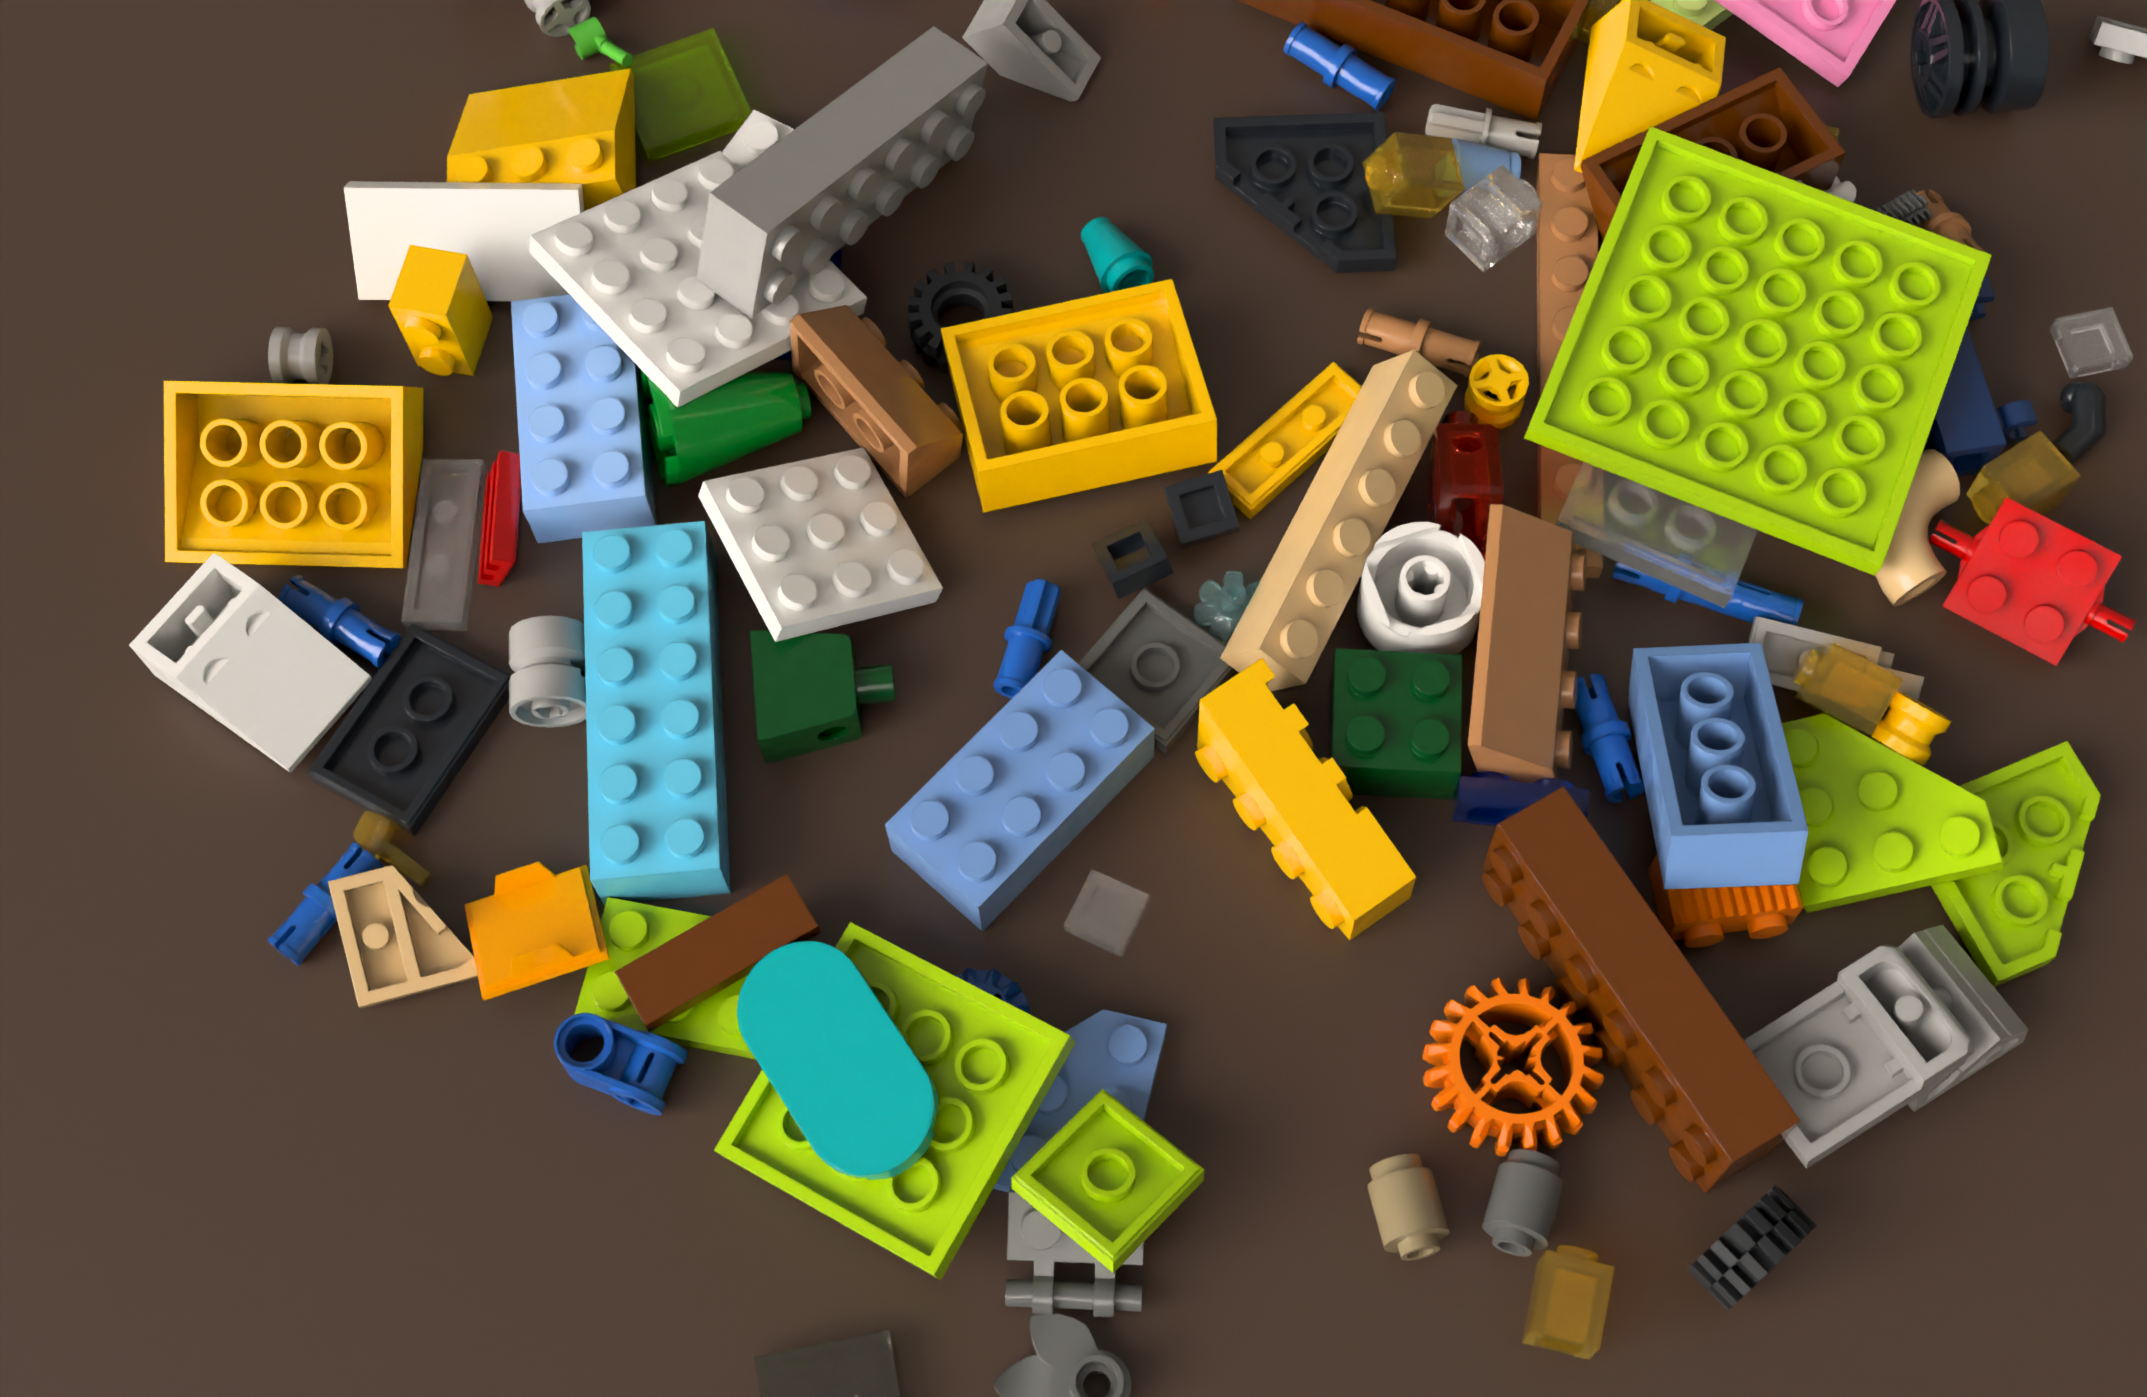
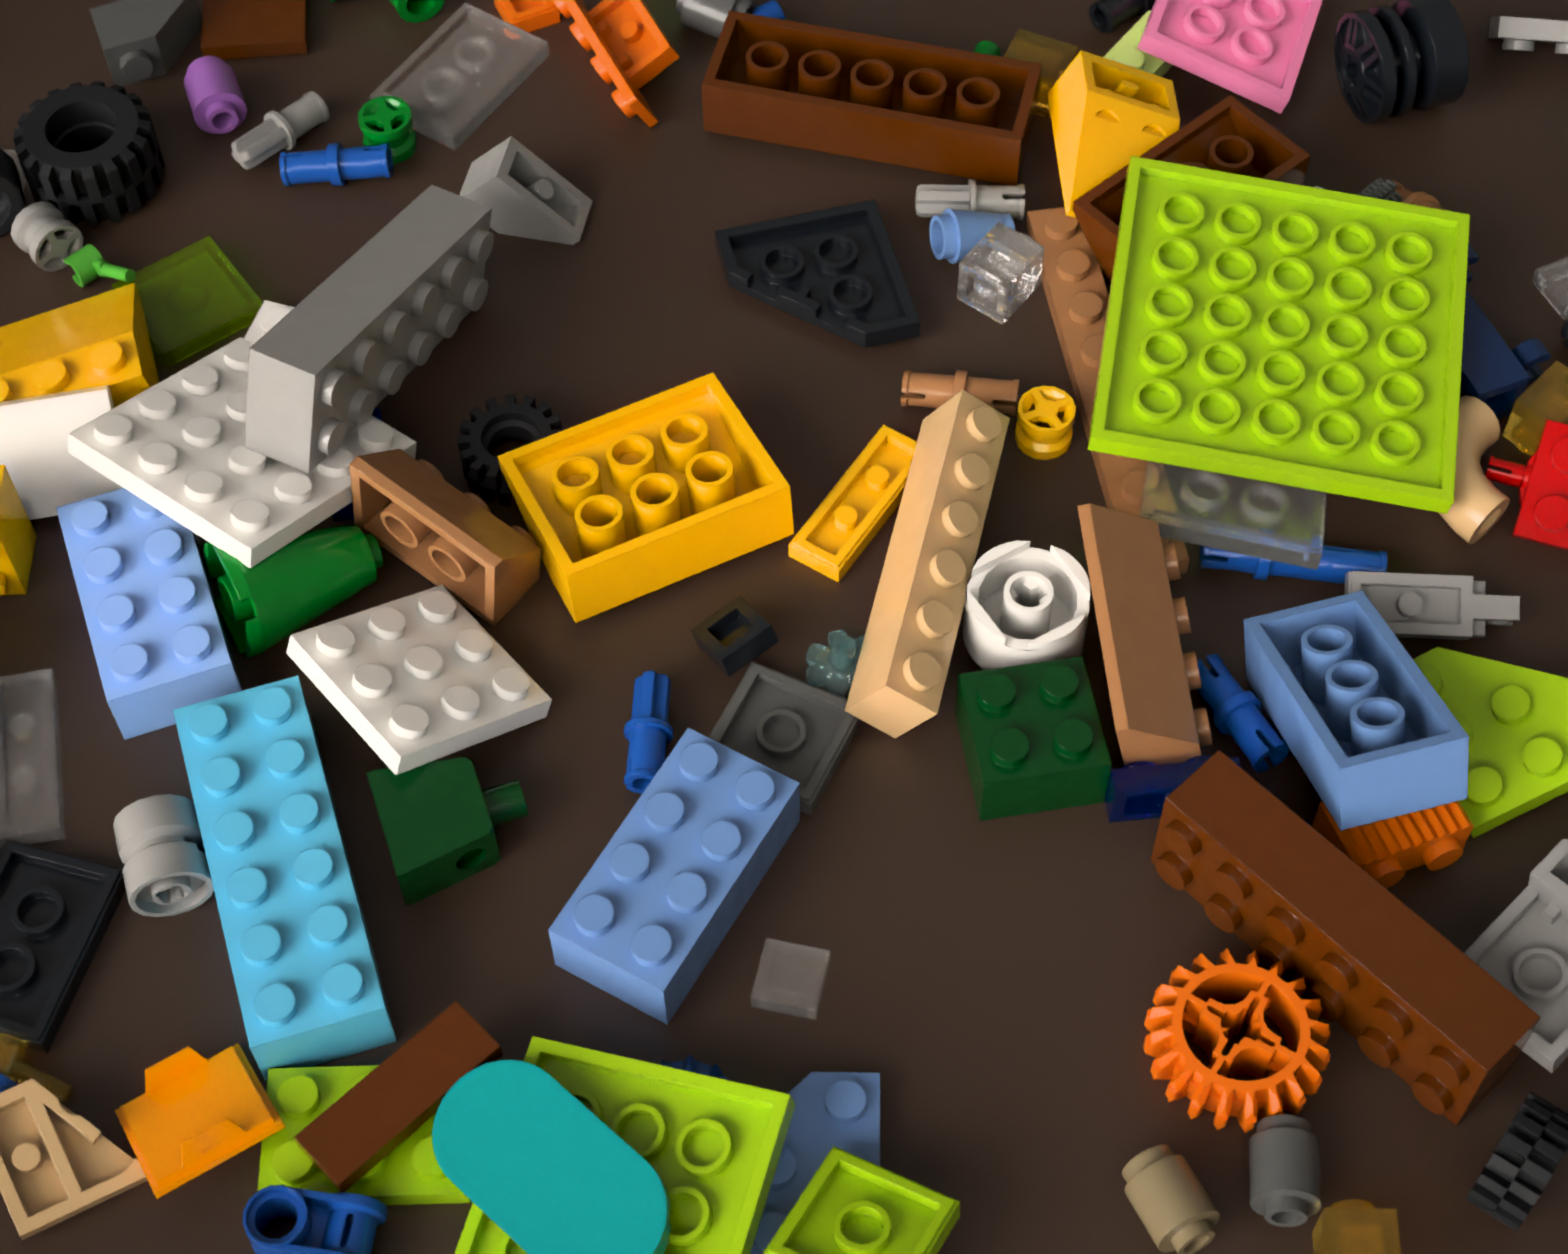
camera: 15 degrees left, 10 degrees down
(500, 519) = (82, 719): red tile -> none
(1115, 256) = (648, 366): teal cone -> none
(1201, 509) = (791, 578): black plate -> none
(1299, 803) = (959, 827): yellow wedge -> none
(1339, 66) = (821, 169): blue pin -> none
(1413, 175) = (918, 244): clear yellow brick -> none
(1464, 465) = (1041, 485): clear red torso -> none
(1846, 687) = (1452, 615): clear yellow brick -> none
(1910, 727) = (1521, 640): yellow wheel -> none

